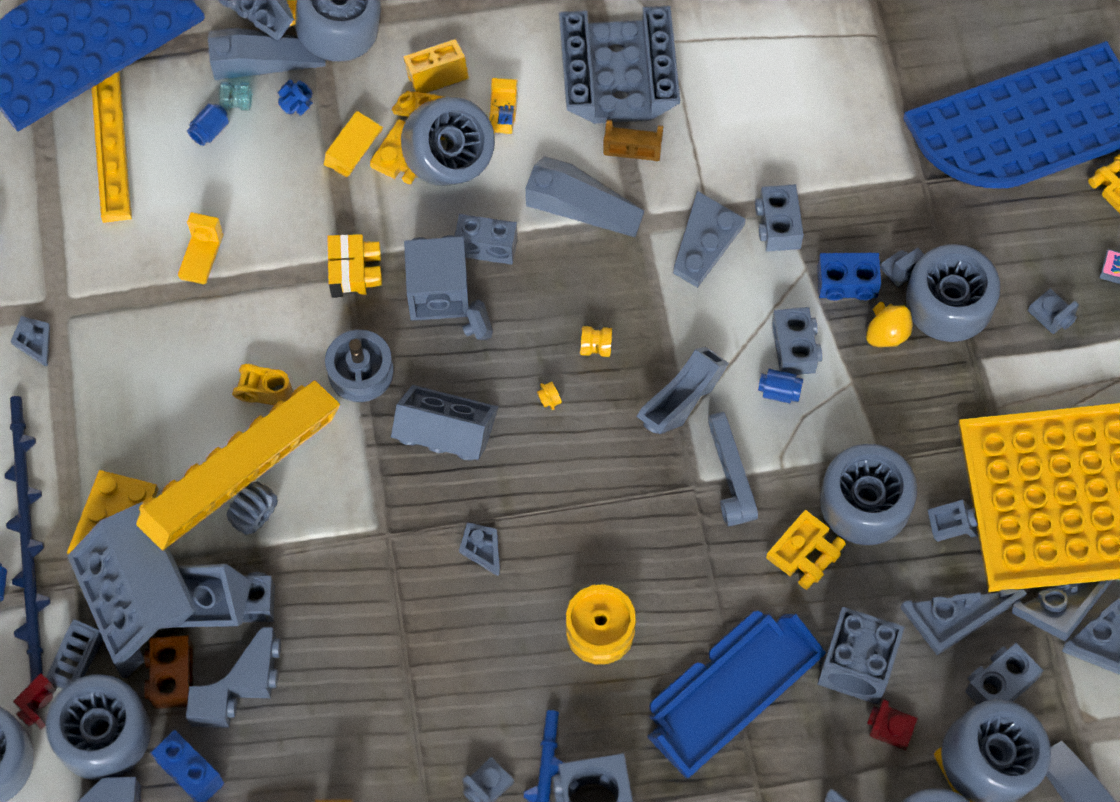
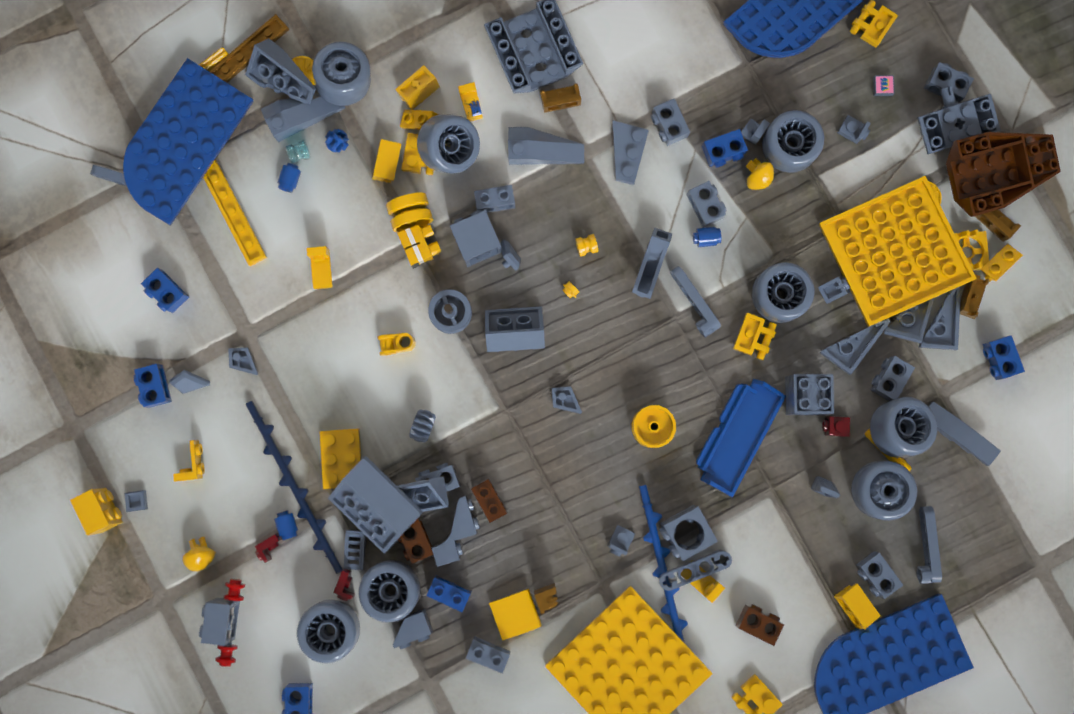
camera: 20 degrees left, 20 degrees up
(236, 465) = (407, 409): yellow brick -> none
(306, 650) = (489, 500): none -> reddish brown brick
(356, 209) = (409, 211): none -> yellow wheel

